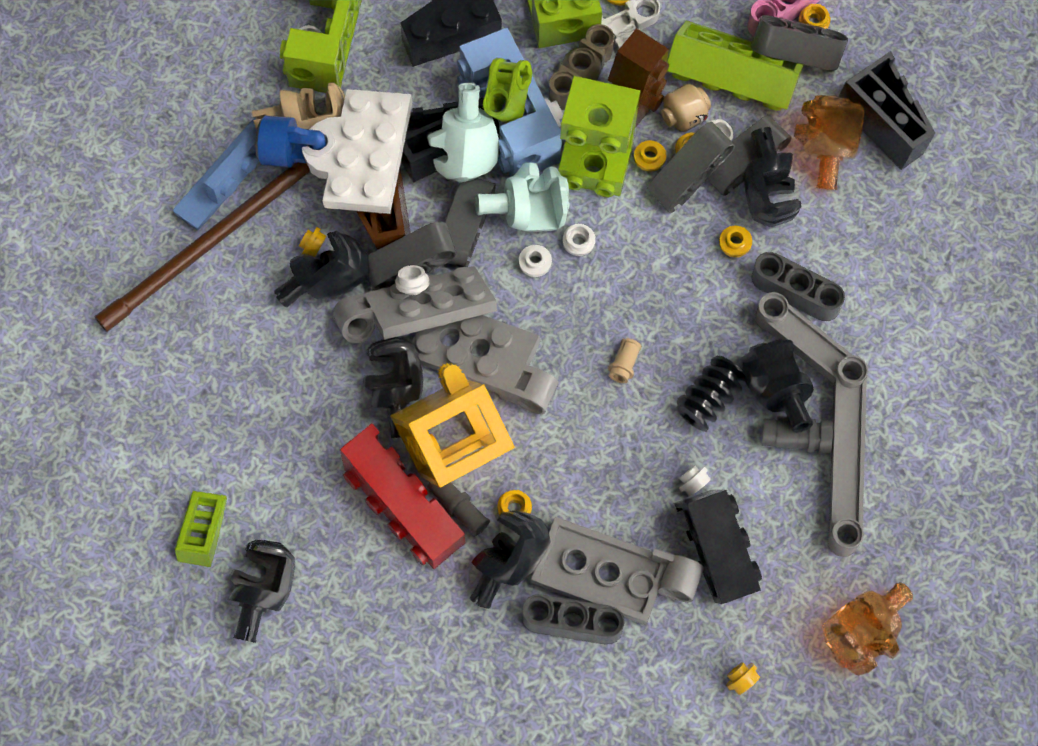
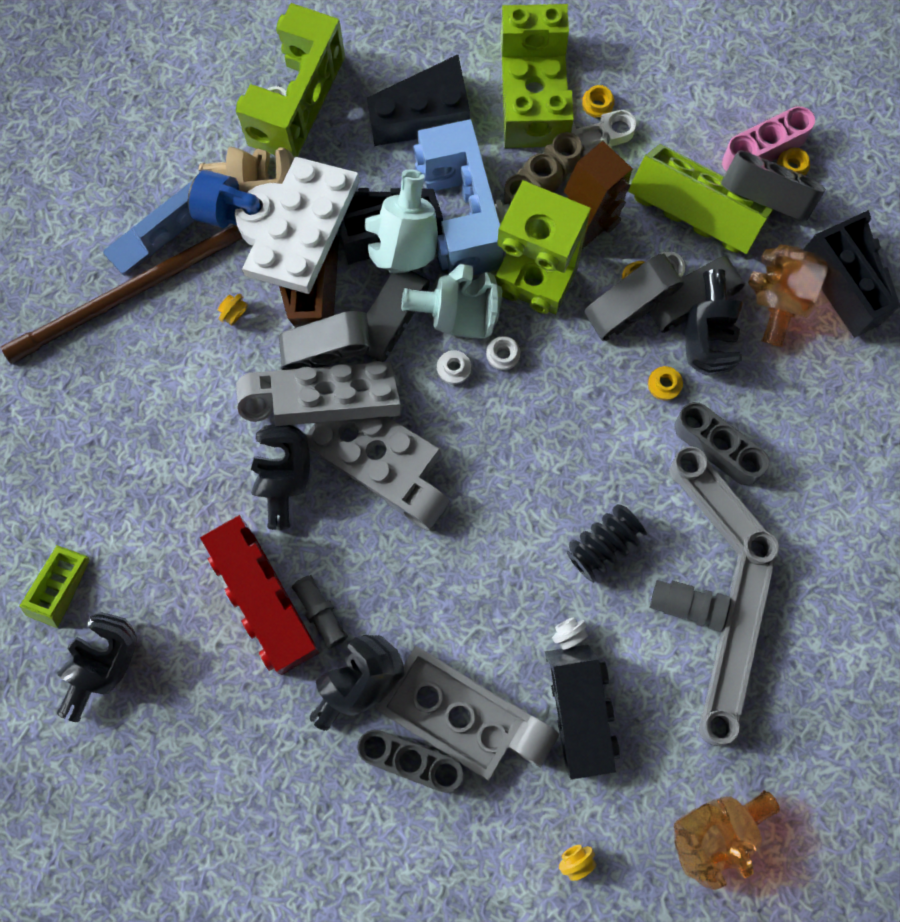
camera: 15 degrees right, 5 degrees up
(328, 276) = (243, 347): black piece -> none
(412, 280) = (318, 367): white plate -> none
(455, 397) = (311, 512): yellow piece -> none
(507, 87) = (455, 185): lime piece -> none
(514, 496) = (377, 613): yellow plate -> none
(624, 361) = (519, 497): tan pin -> none
(646, 163) = (594, 286): yellow plate -> none
(685, 107) = (641, 233): tan head -> none
(778, 381) = (680, 544): black piece -> none

